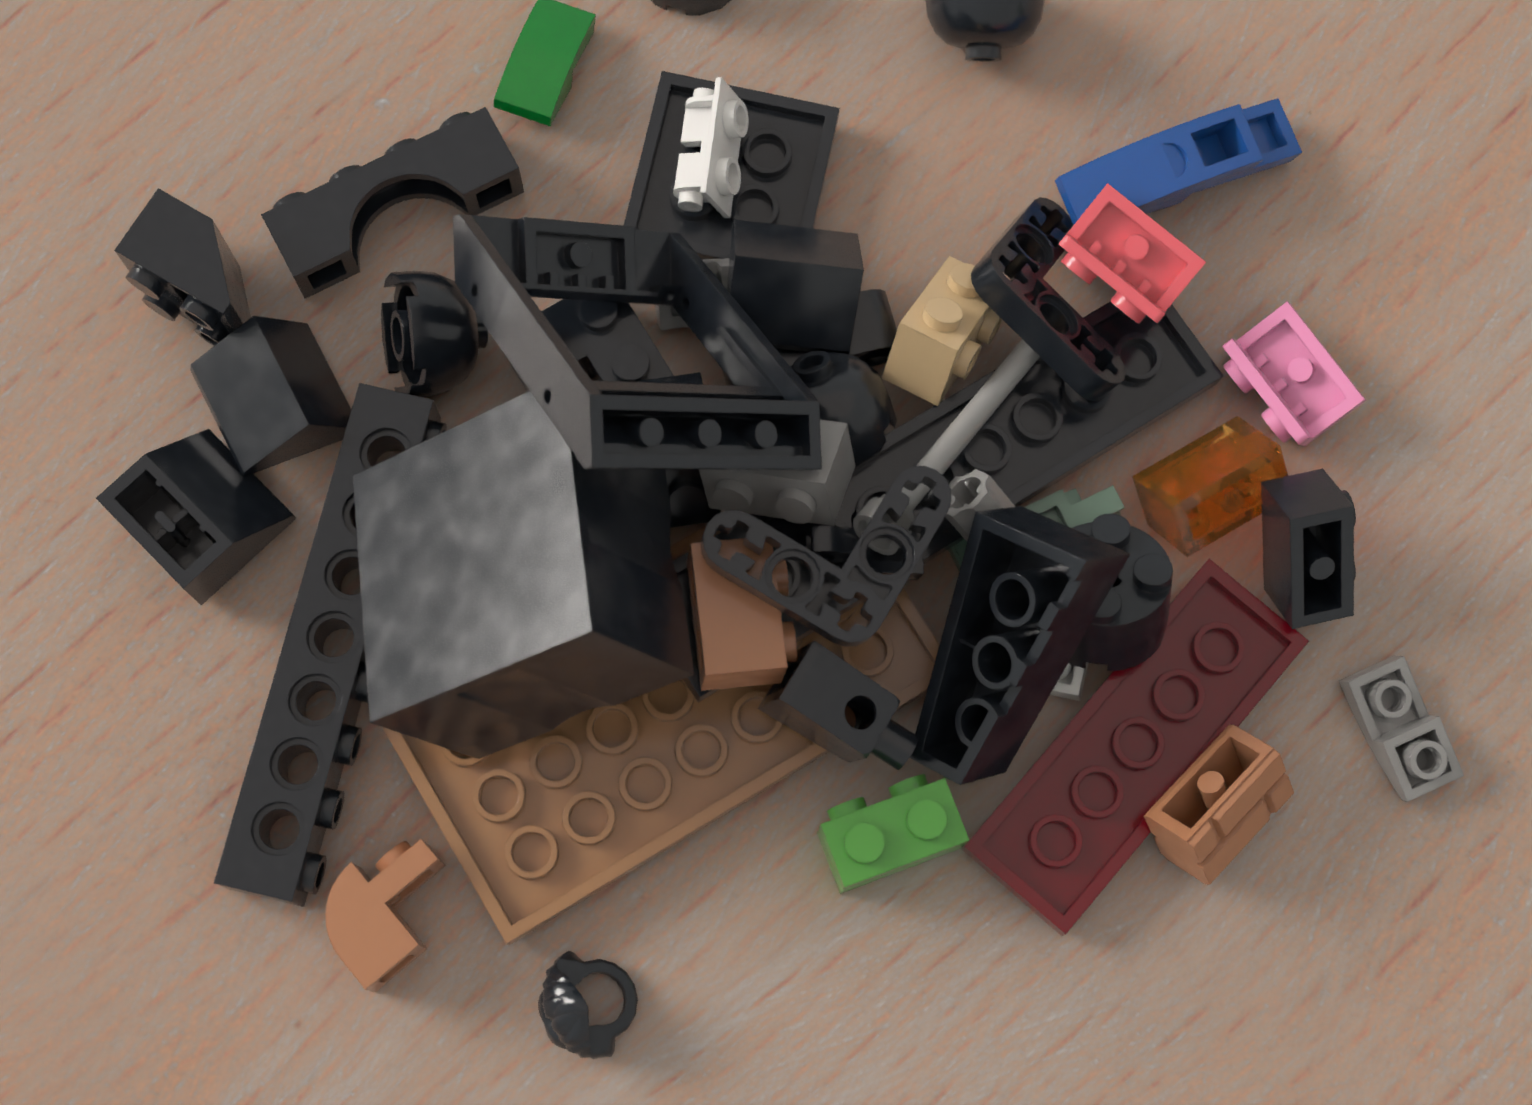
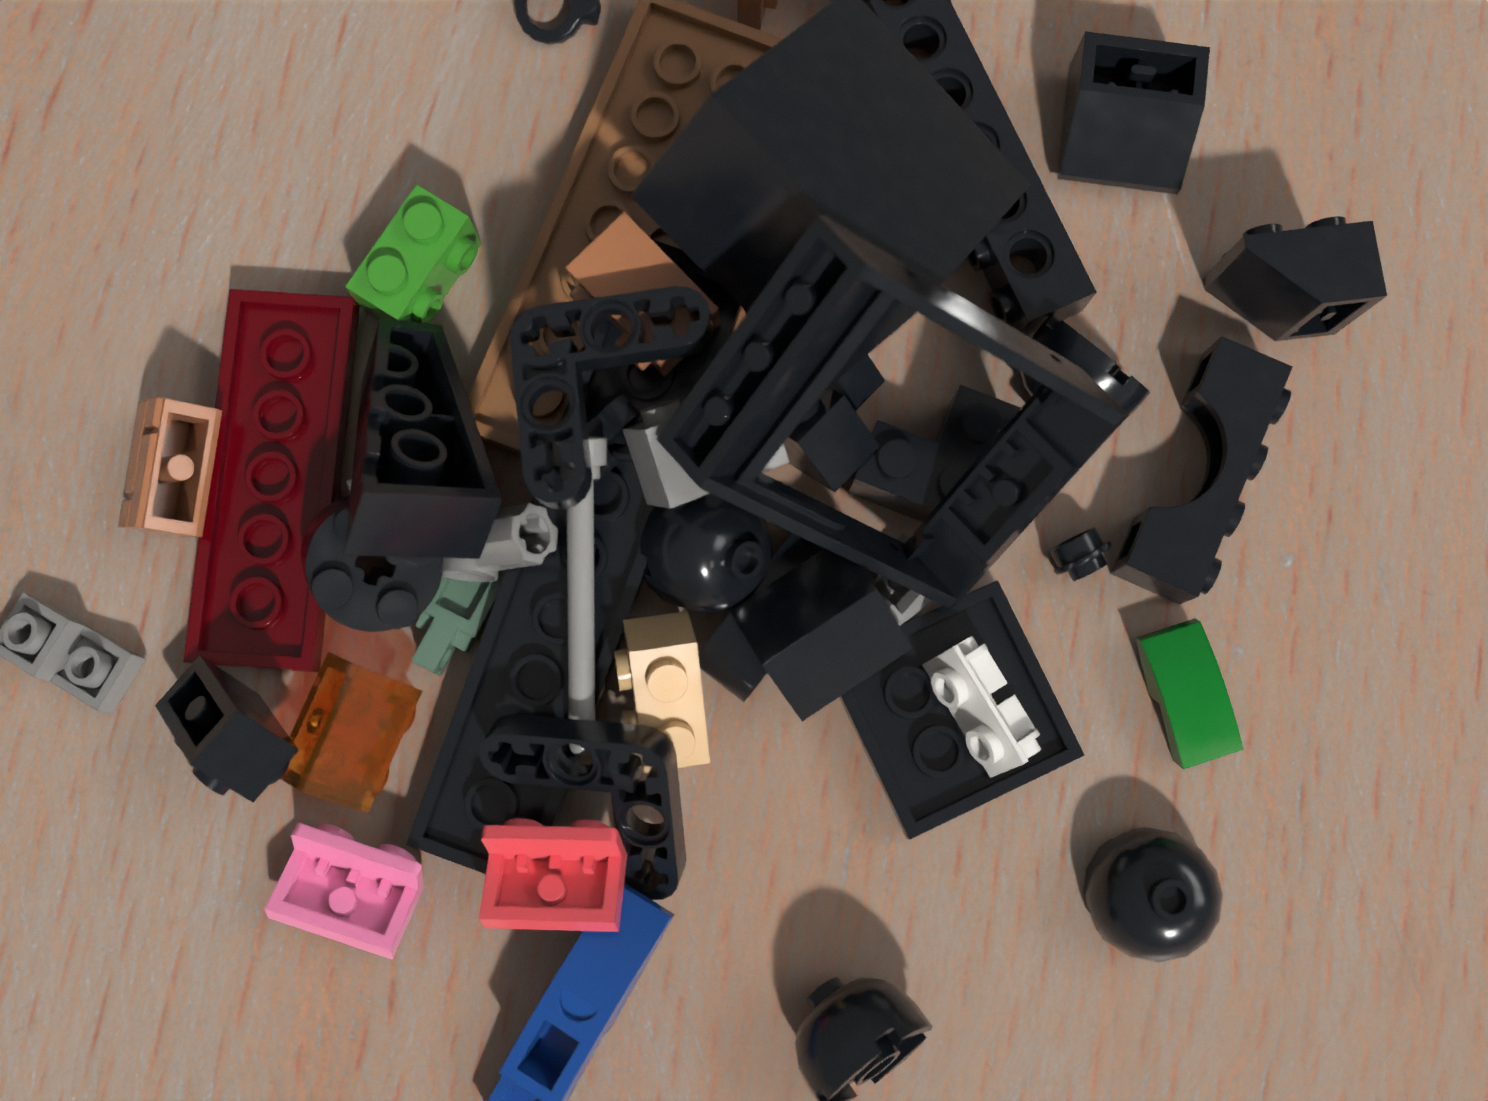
camera: 145 degrees right, 5 degrees up
(271, 393) = (1156, 249): black slope -> none
(539, 204) = (1080, 554): none -> black plate
(814, 705) = (500, 291): black torso -> none

